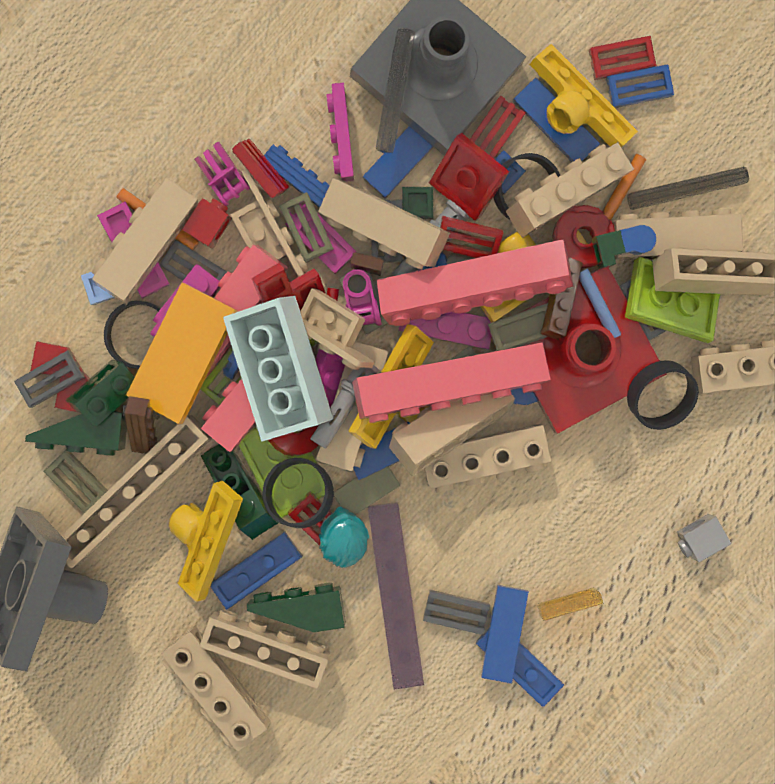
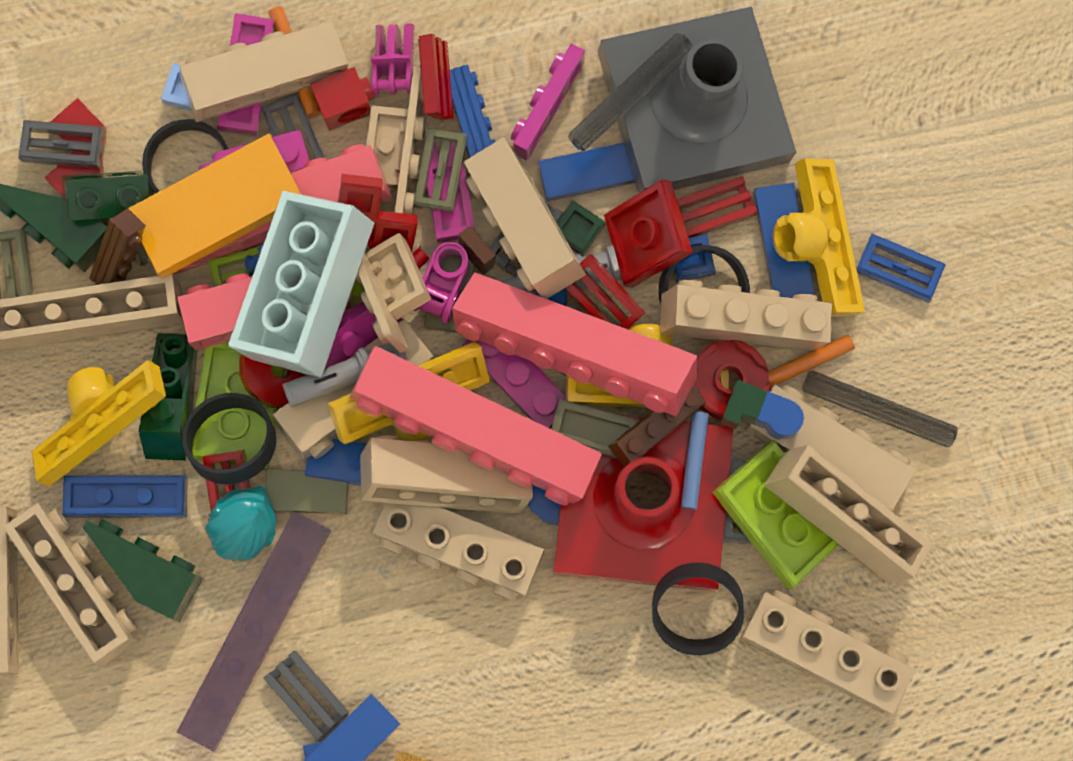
camera: 40 degrees right, 10 degrees down
(597, 63) = (908, 212): red tile -> none

